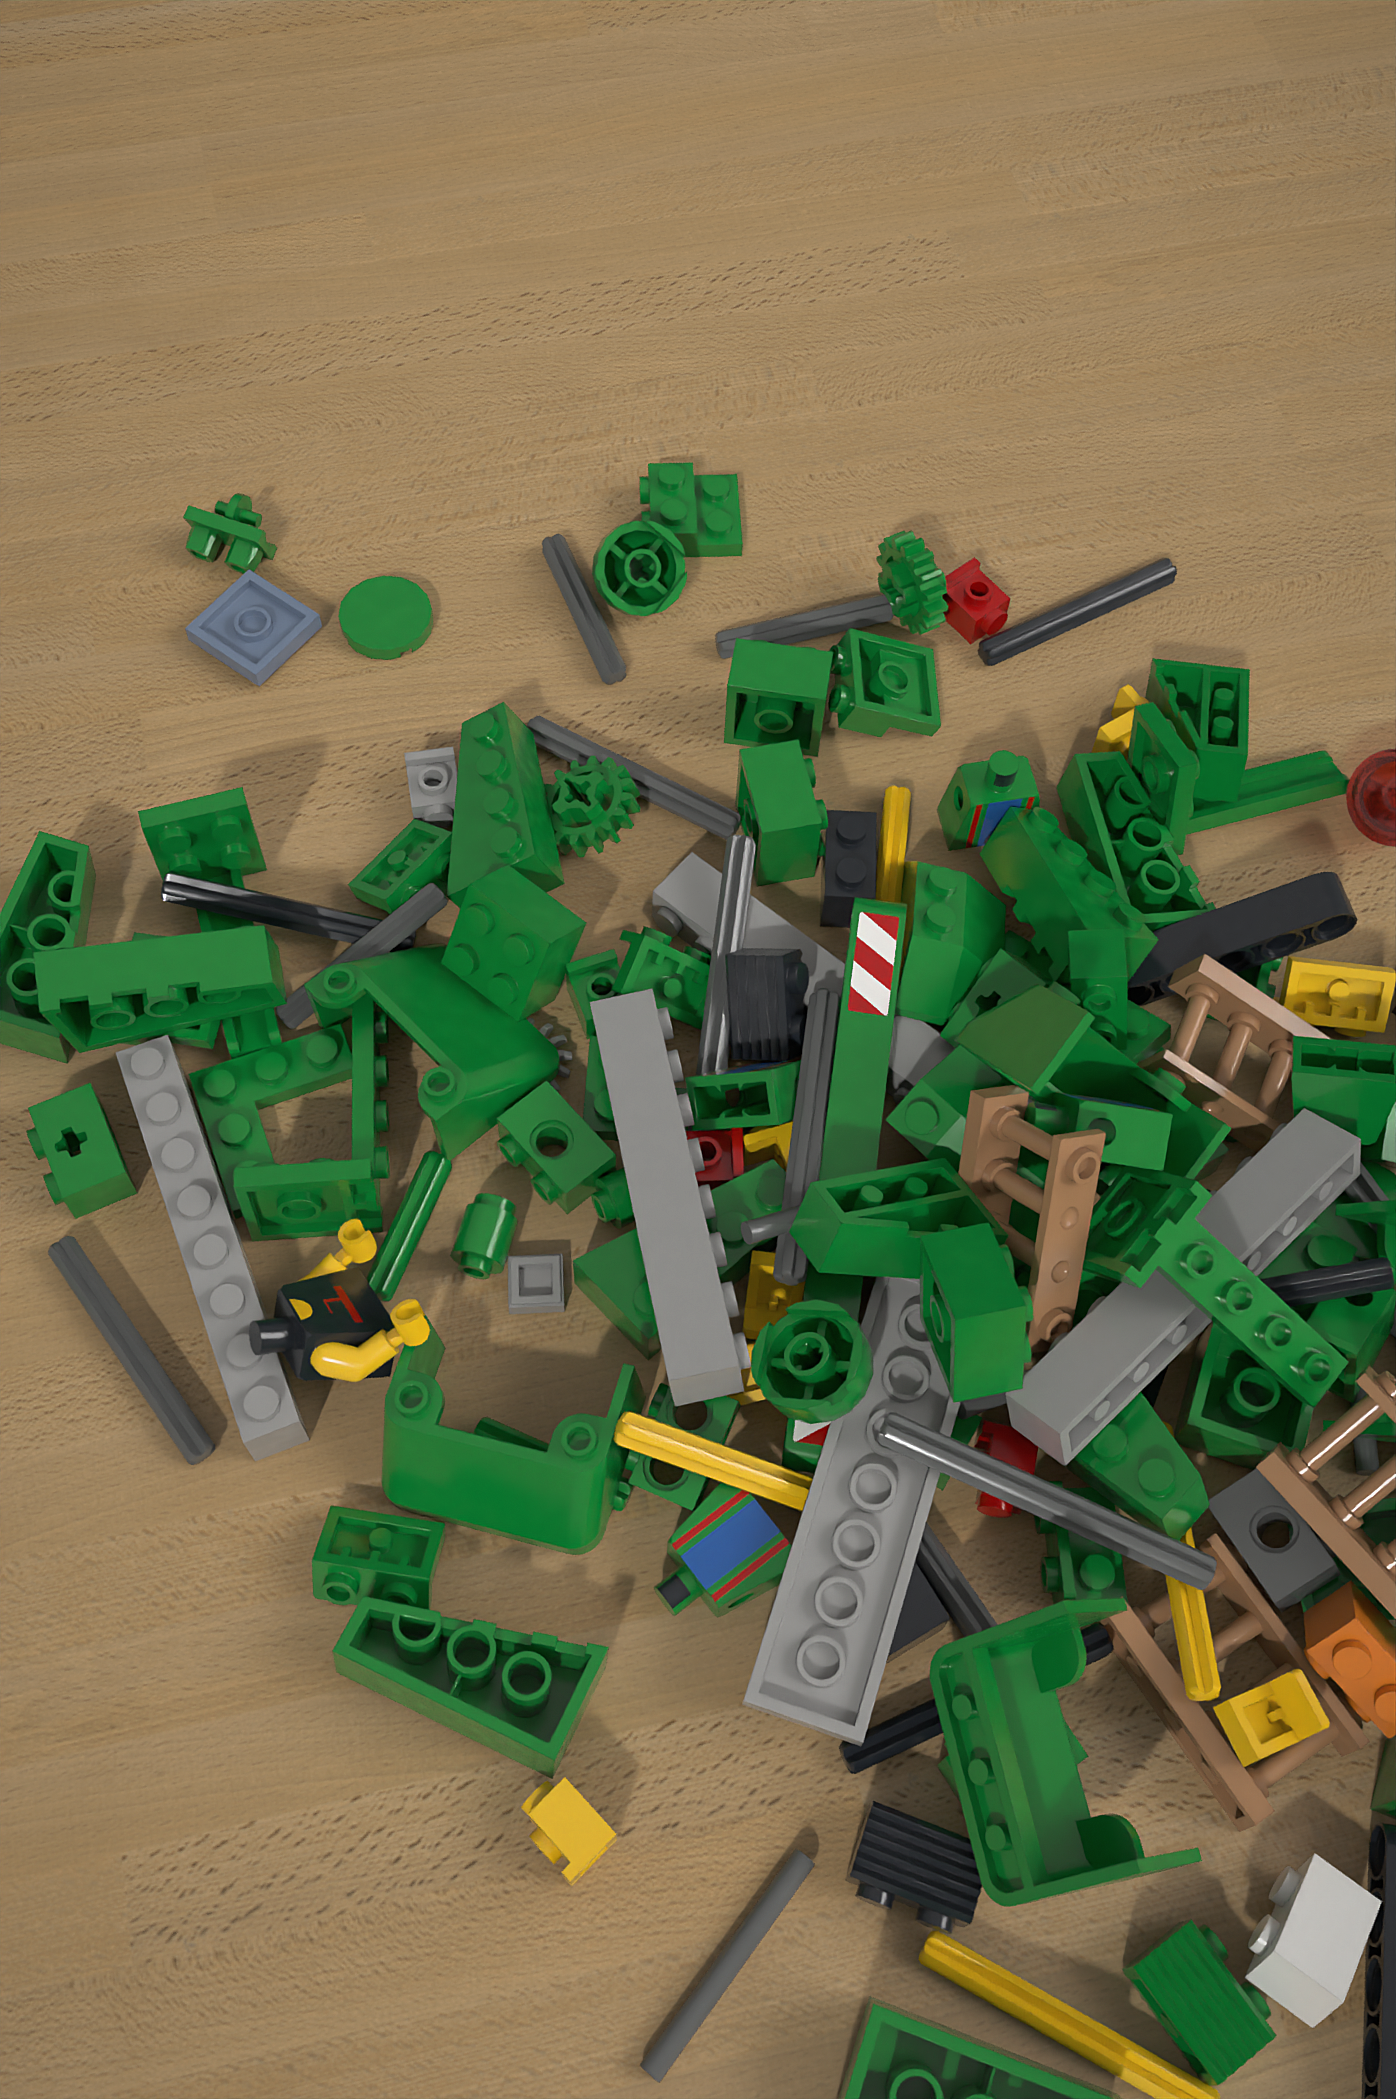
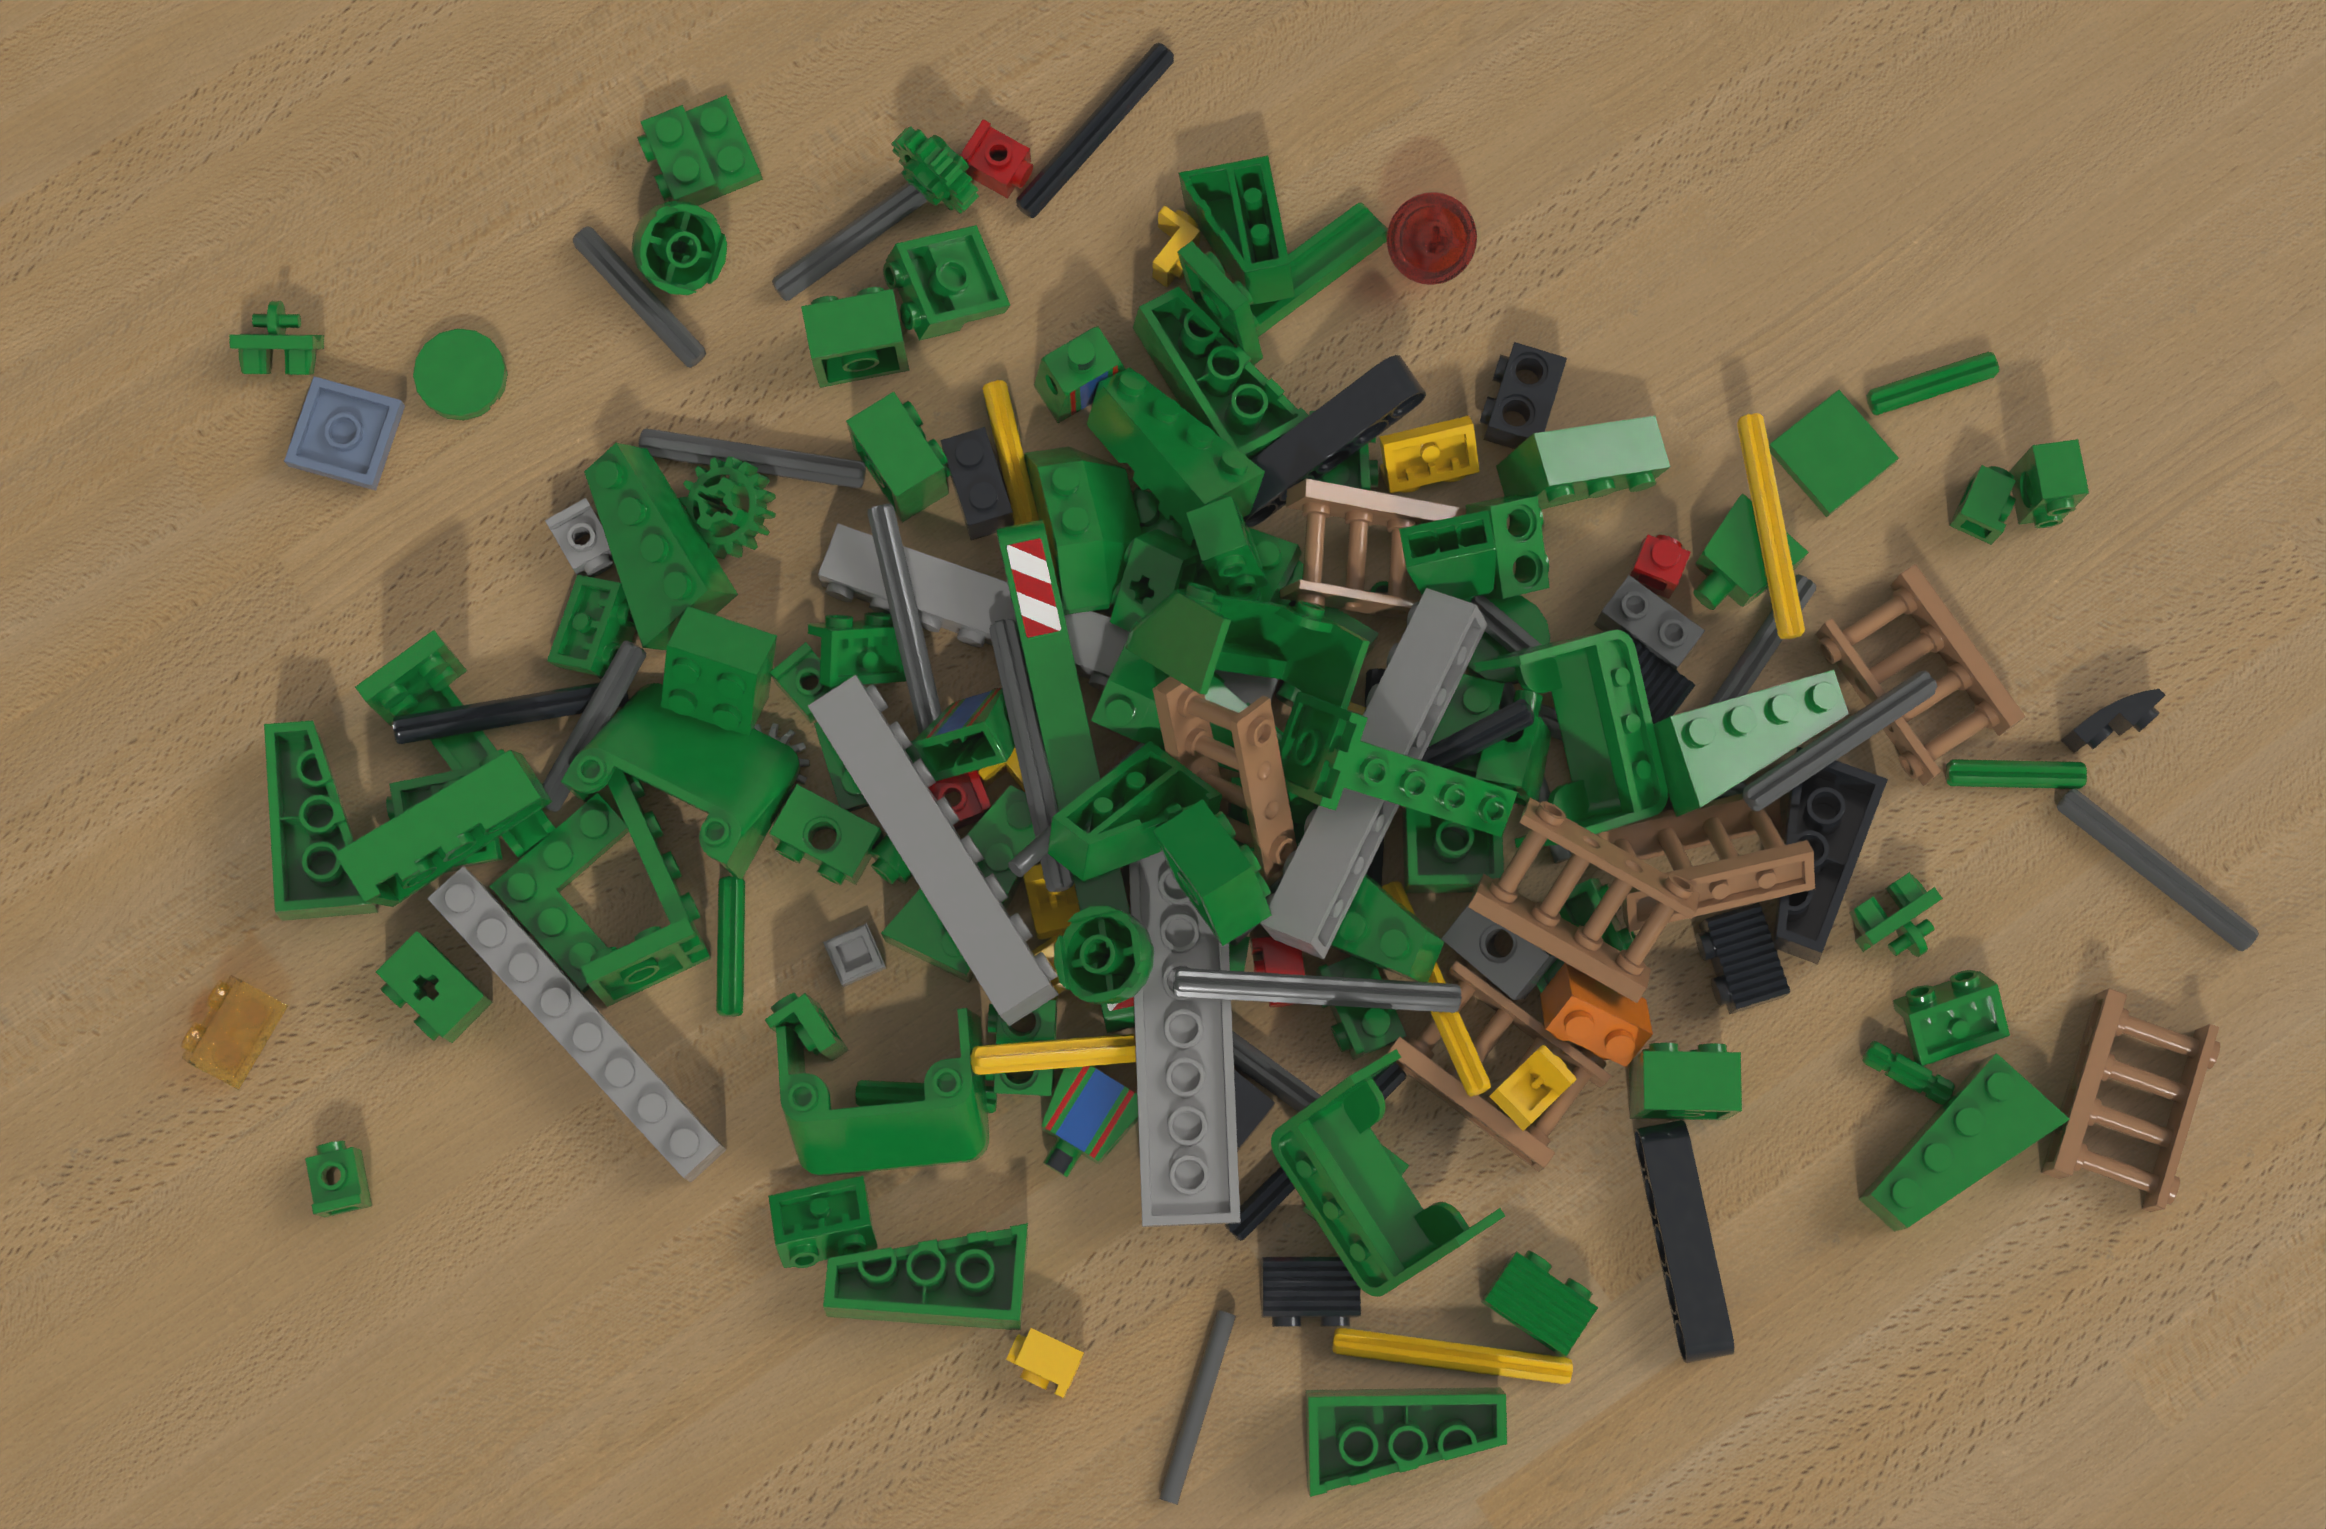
camera: 20 degrees left, 15 degrees up
(132, 1350) = (551, 1133): dark grey axle -> none
(334, 1321) = (713, 1056): torso -> none
(455, 1329) = (810, 1024): none -> green bracket
(485, 1236) = (798, 933): green brick -> none
(766, 1003) = (954, 646): black brick -> none
(1133, 1132) = (1272, 668): green torso -> none
(1311, 1939) = (1606, 1231): white brick -> none

